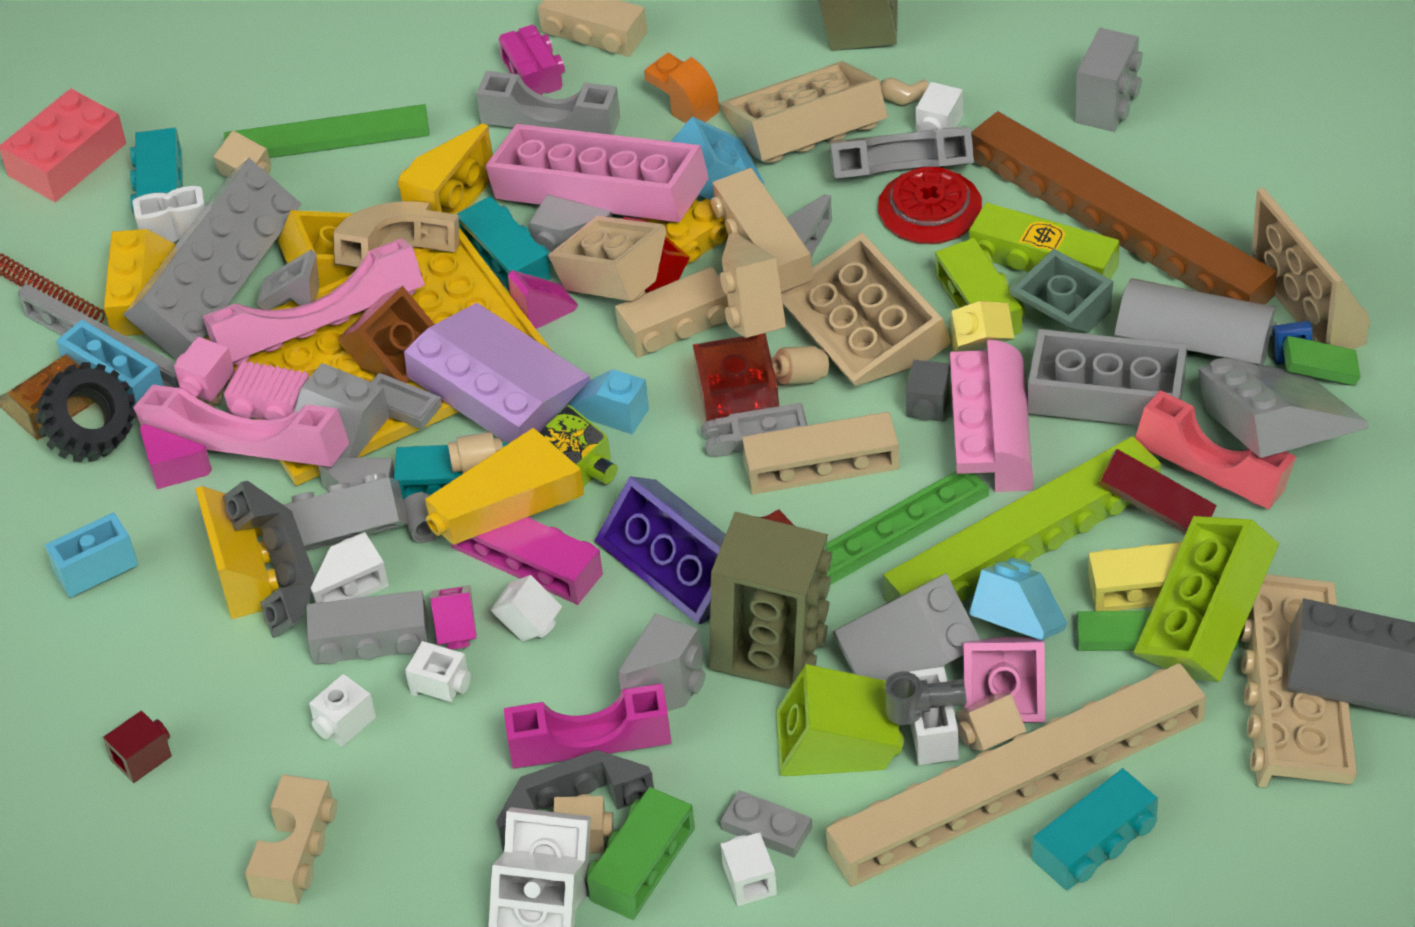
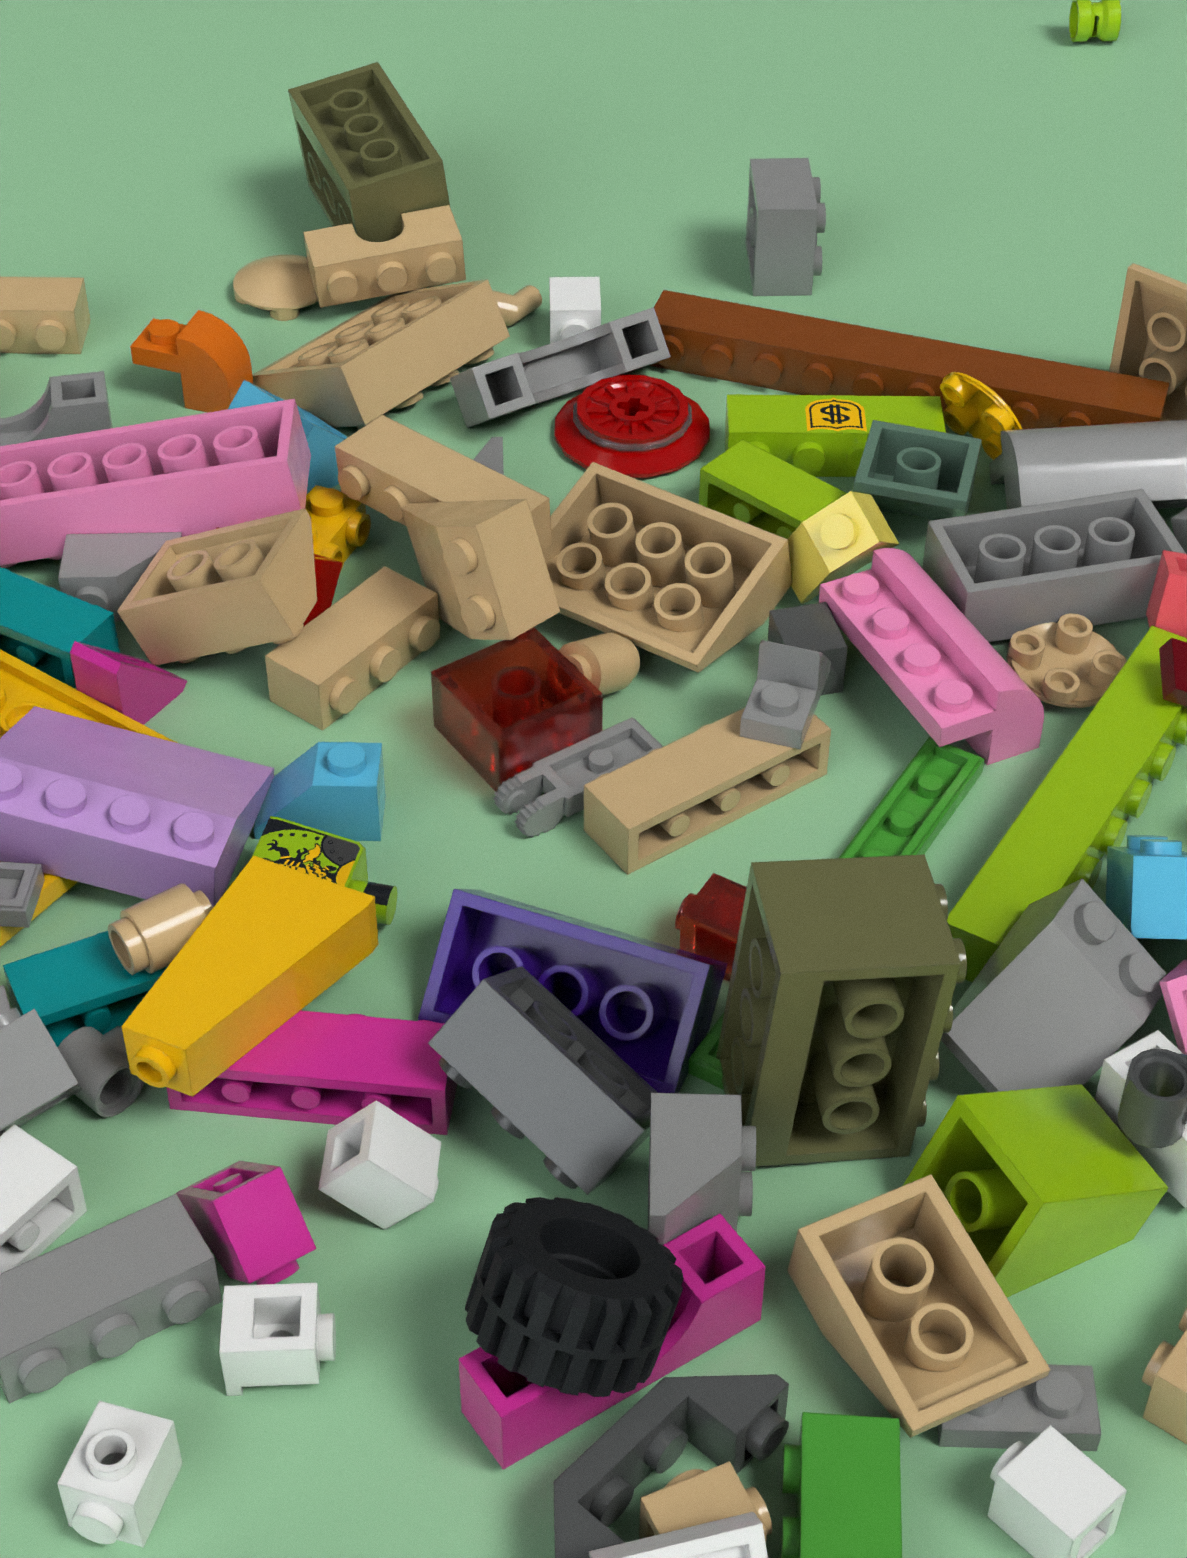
camera: 30 degrees left, 5 degrees down
(565, 696) = (573, 1296): none -> black tyre
(626, 584) = (546, 1077): none -> slope
(735, 757) = (913, 1306): none -> tan slope
(775, 36) = (276, 285): none -> tan dish
(860, 44) = (355, 270): none -> tan arch
(882, 415) = (784, 694): none -> light grey slope
(1076, 439) = (1065, 661): none -> tan dish
(1138, 256) = (976, 410): none -> yellow dish

